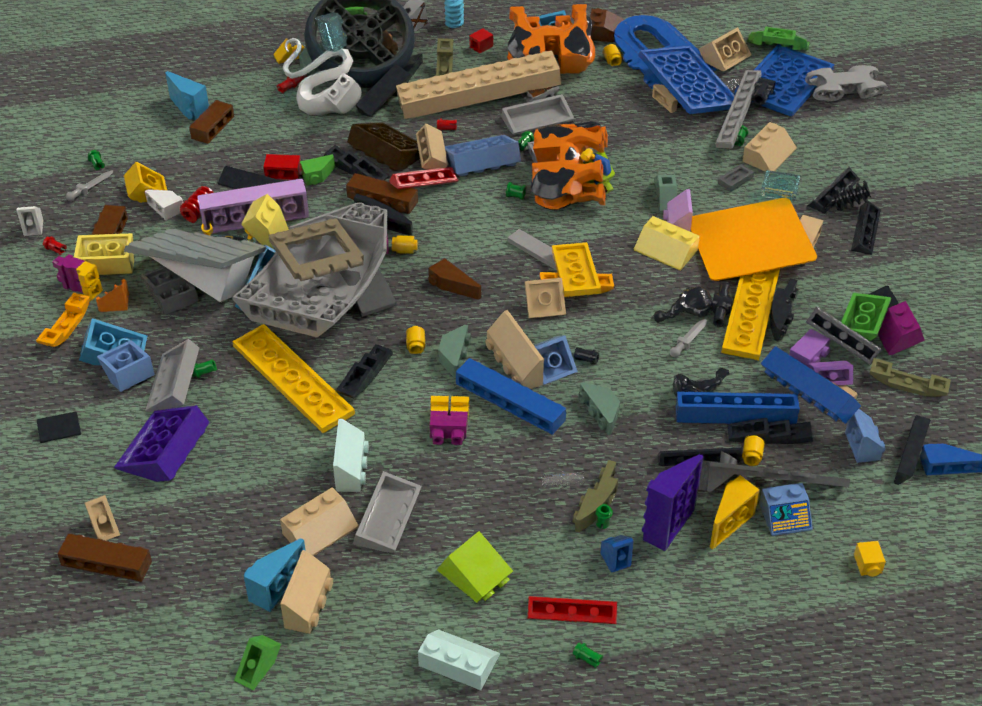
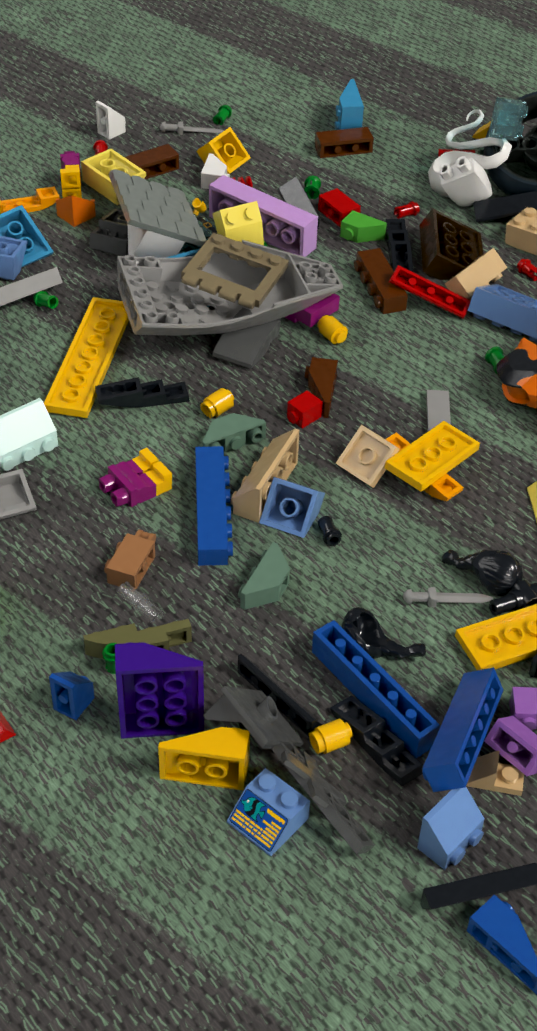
camera: 50 degrees right, 0 degrees up
(242, 165) = (315, 186): none -> green bush
(321, 137) = (407, 210): none -> red pin
(395, 220) = (353, 296): black slope -> none
(468, 302) = (304, 409): none -> red brick
(522, 461) = (131, 559): none -> medium nougat brick
(869, 558) = (266, 933): yellow brick -> none

